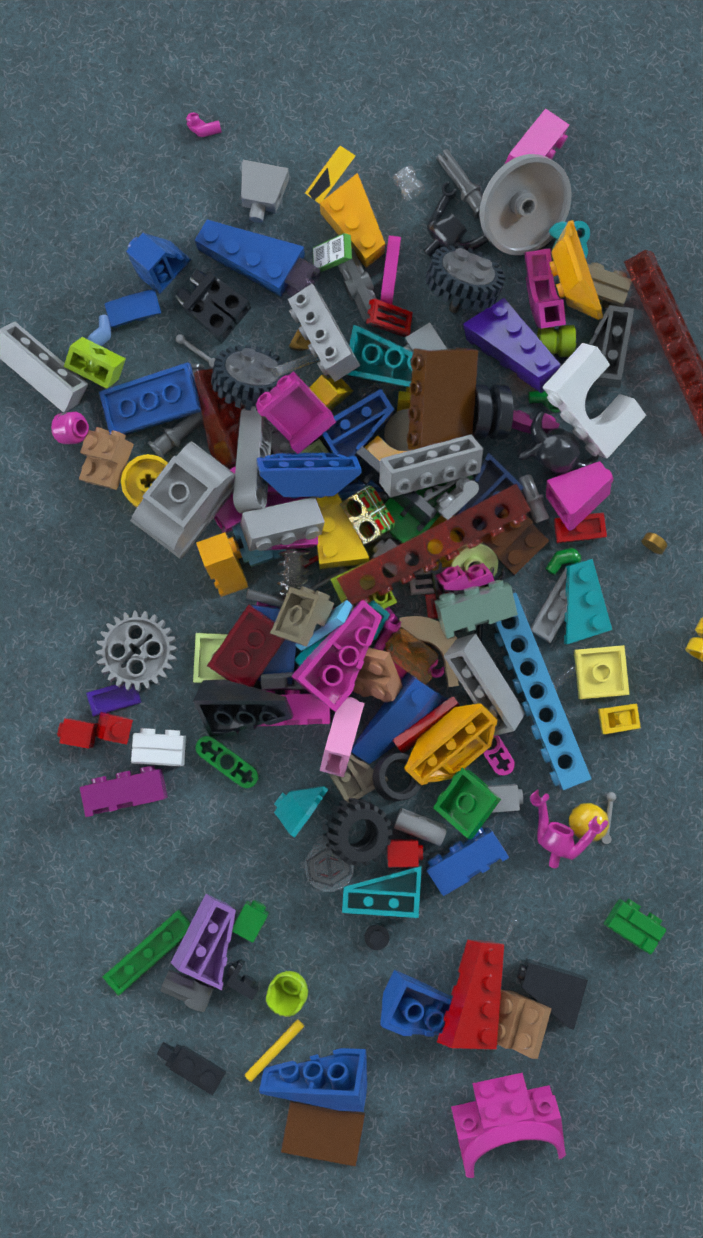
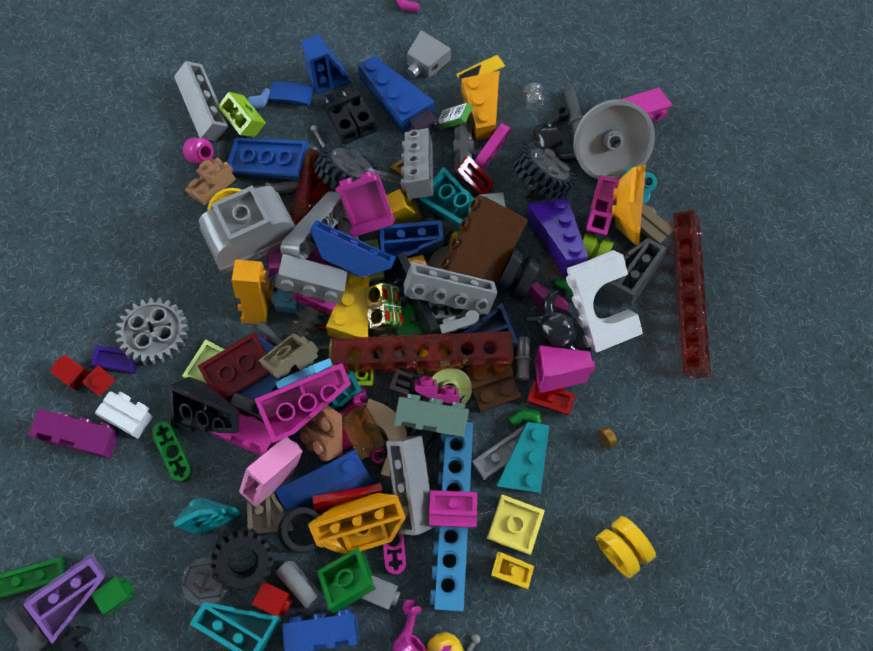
camera: 20 degrees right, 15 degrees down
(538, 689) = (453, 509): none -> dark pink plate

